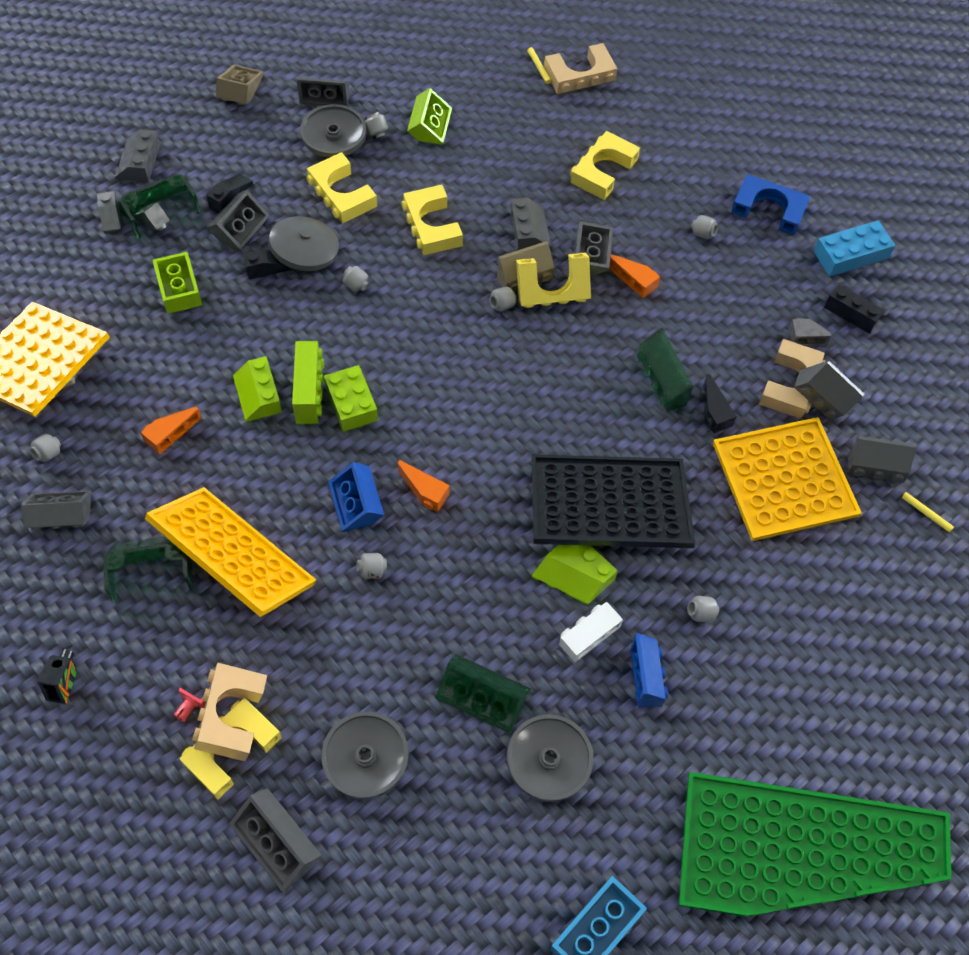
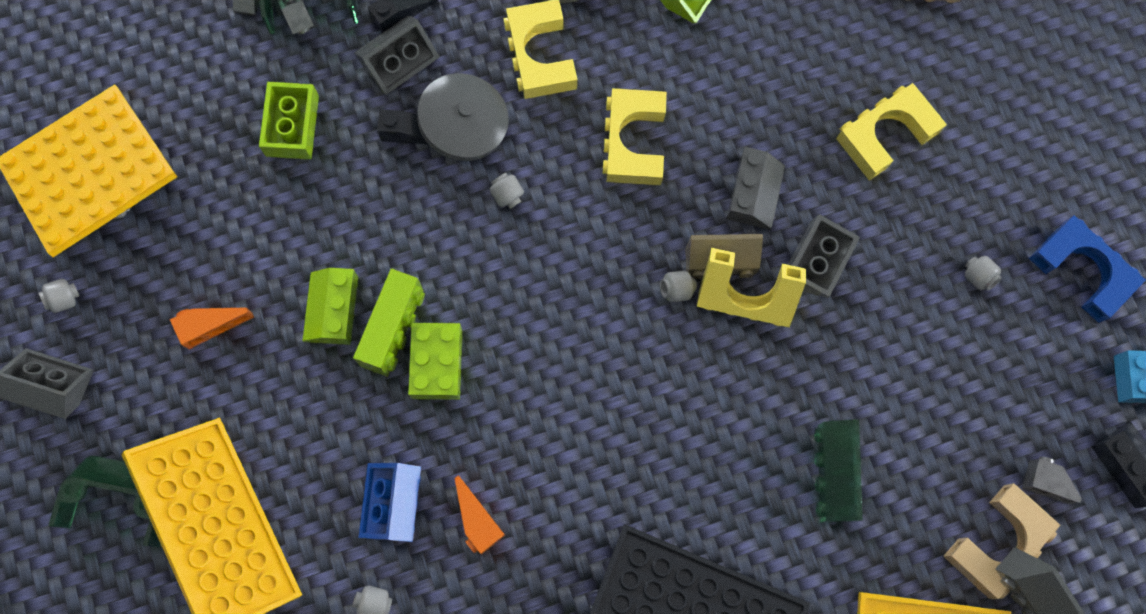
camera: 20 degrees right, 15 degrees up
(635, 275) = (861, 312): orange slope -> none
(716, 408) = (883, 546): black slope -> none

